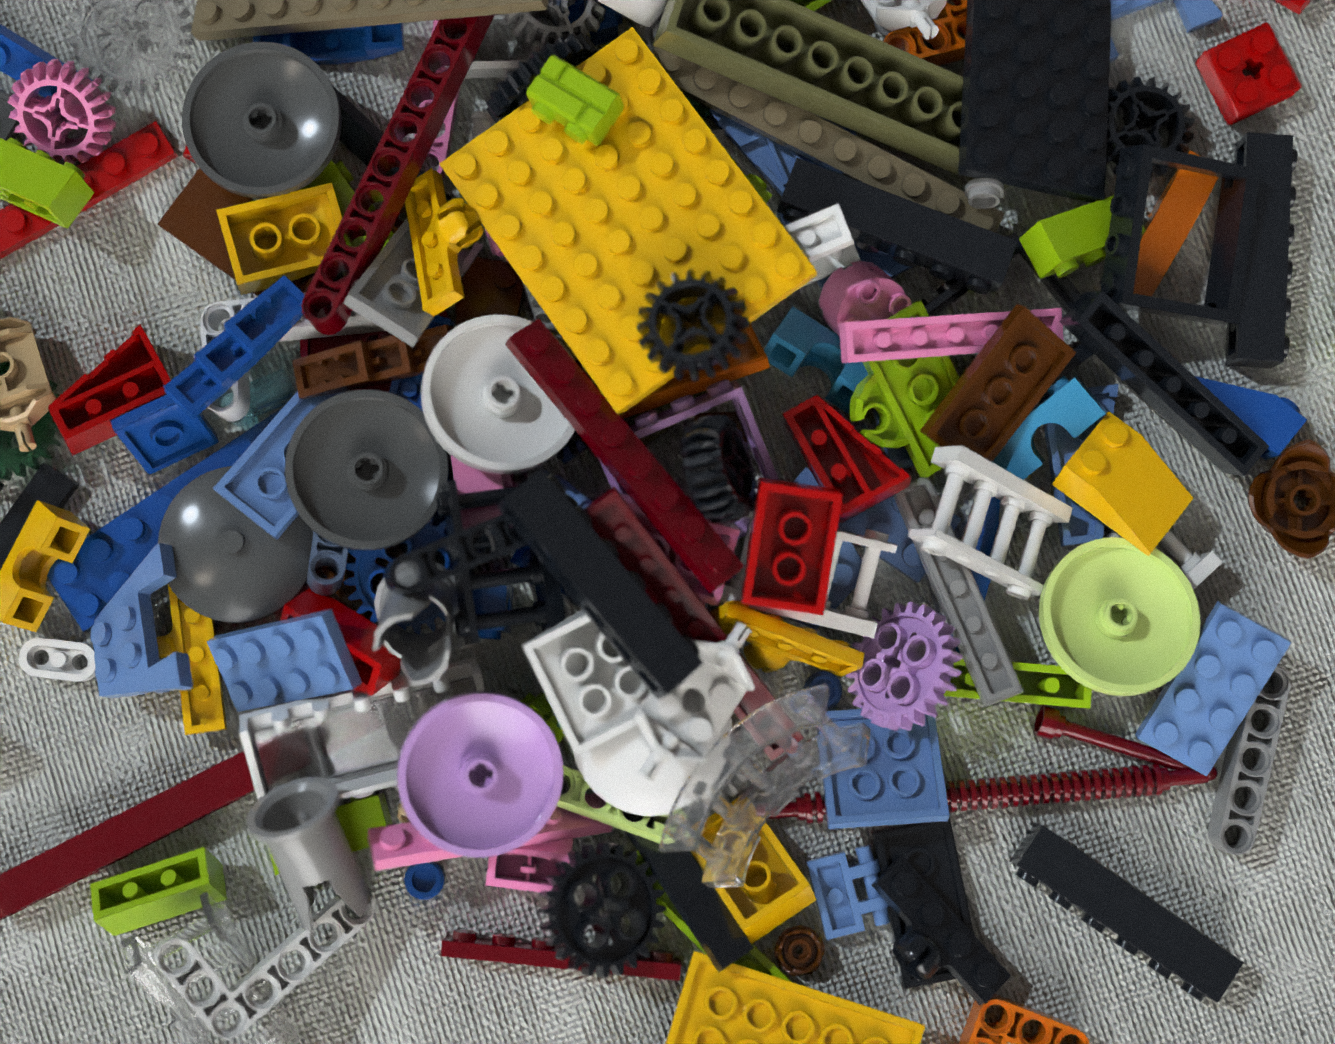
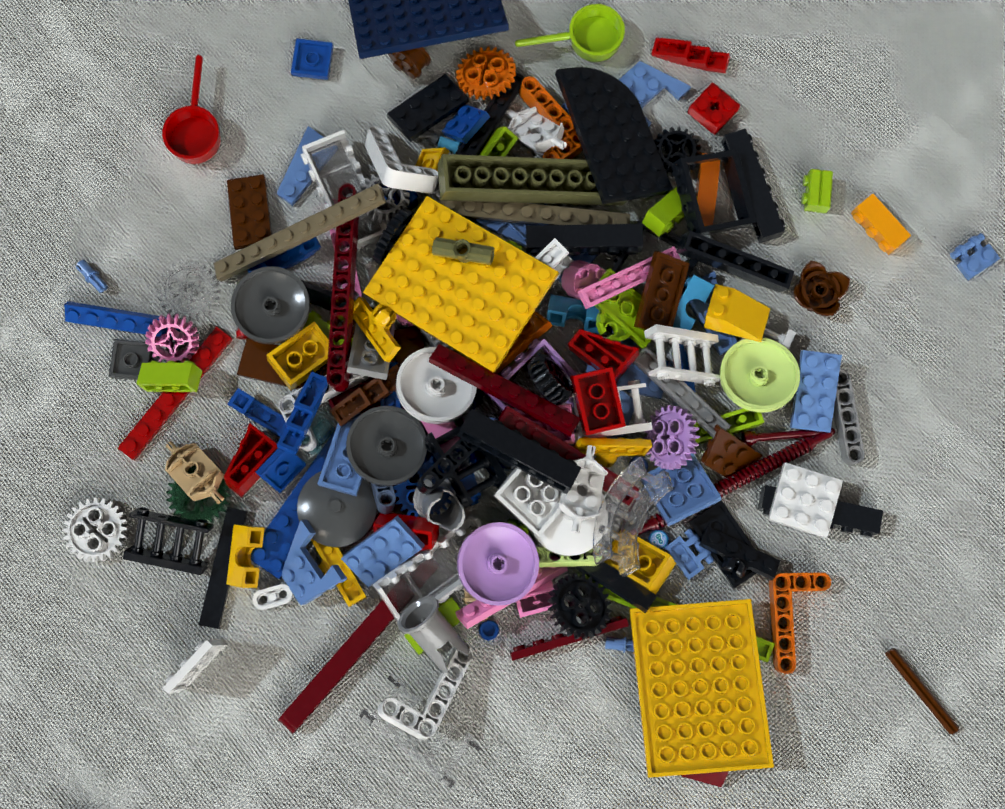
camera: 20 degrees left, 5 degrees down
(157, 891) = (365, 686): lime brick -> none
(163, 305) = (257, 412): none -> blue slope
(574, 101) = (414, 238): lime brick -> none
(649, 1003) = (620, 644): none -> medium blue axle
(666, 305) = (497, 313): black gear -> none
(672, 173) = (451, 248): none -> olive piece
(802, 842) = (658, 539): none -> tile
(802, 963) = (682, 585): reddish brown plate -> none
(984, 192) = (617, 208): light grey plate -> none
(998, 738) = (728, 453): none -> reddish brown wing
(1105, 884) = (805, 500): none -> white plate
(1269, 416) = (787, 257): blue slope -> none

